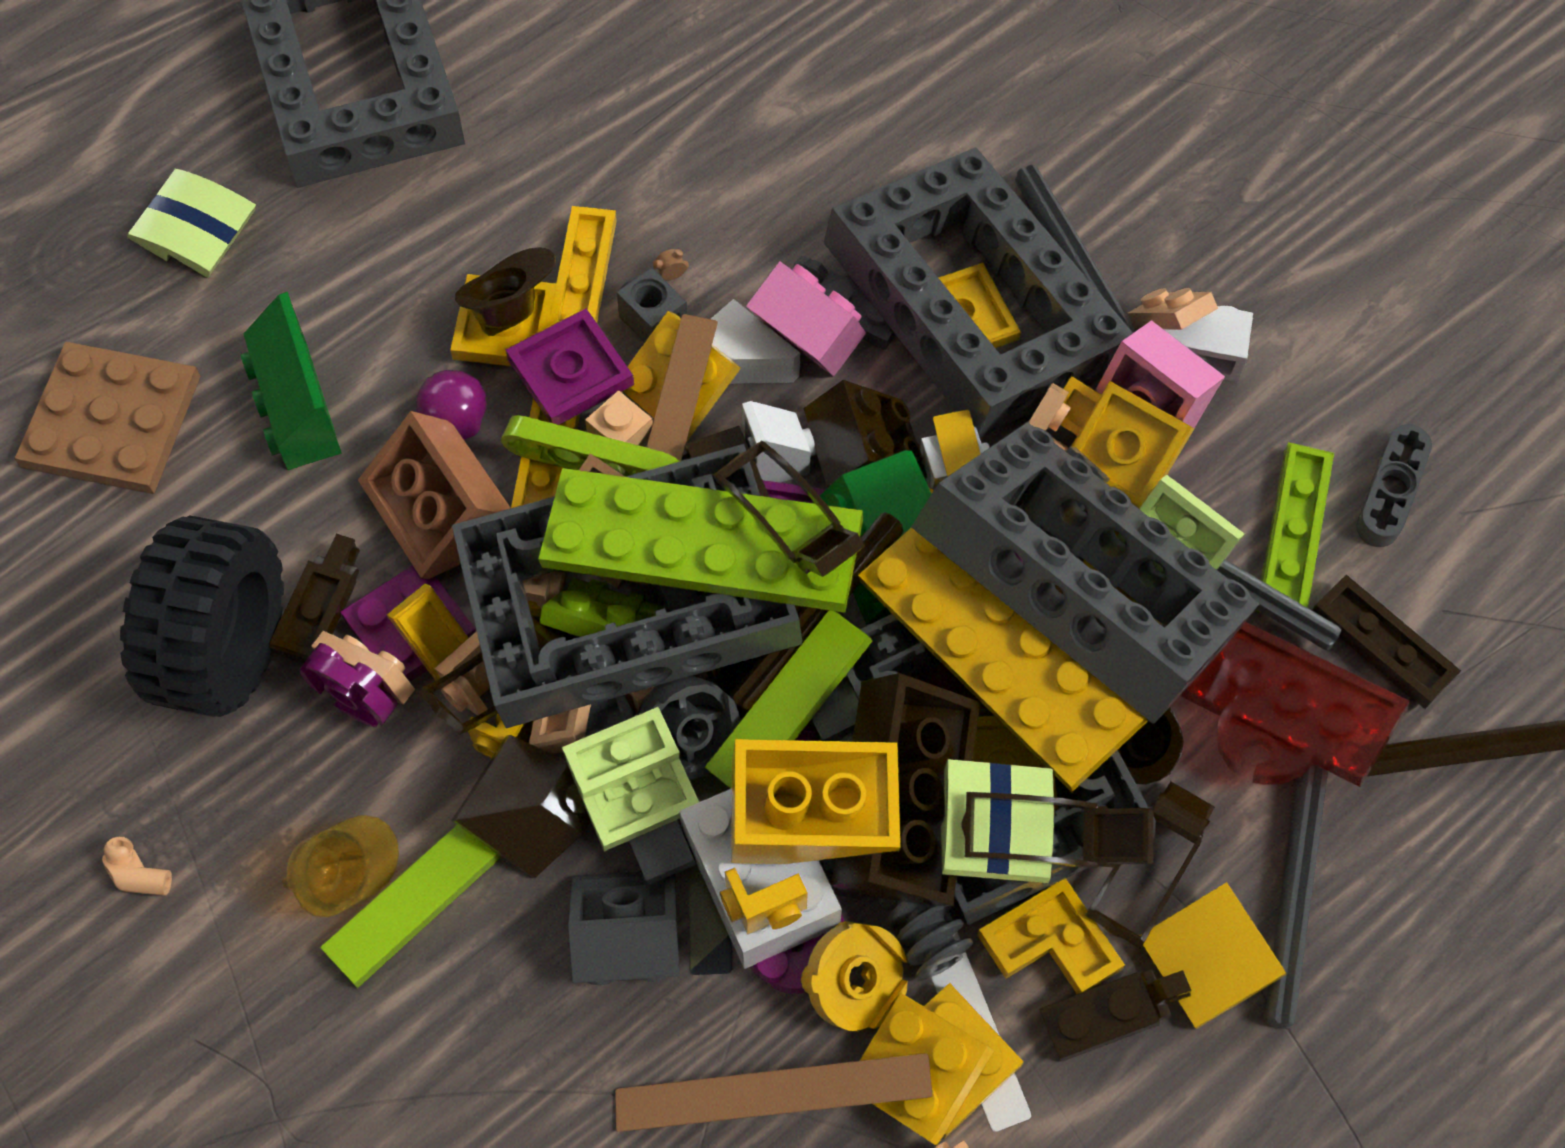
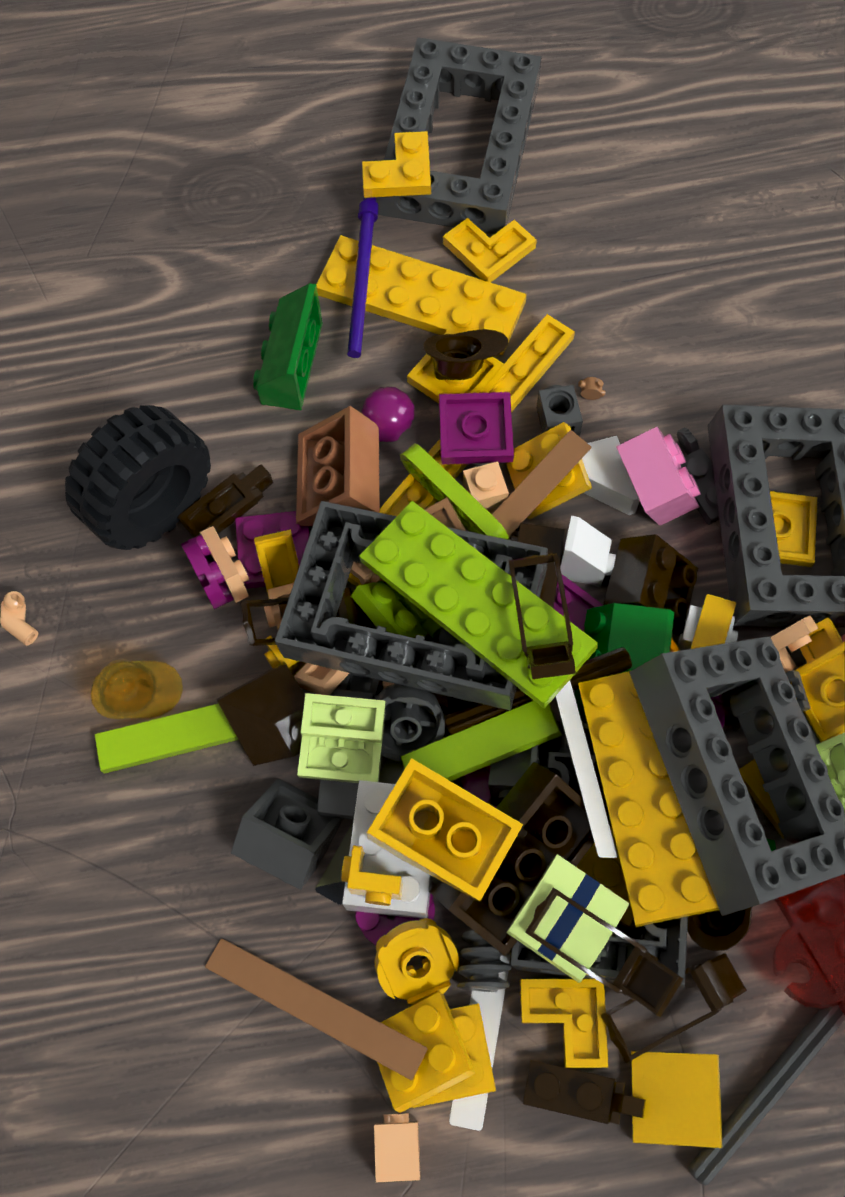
camera: 35 degrees right, 5 degrees up
(108, 417) = (172, 313): medium nougat plate -> none
(192, 221) = (296, 206): yellowish green slope -> none
(292, 191) = (367, 215): none -> dark purple bar
(316, 118) = (403, 176): none -> yellow plate
(398, 252) = (421, 292): none -> yellow plate
(457, 174) = (487, 255): none -> yellow plate
(926, 662) = (585, 773): none -> white sticker

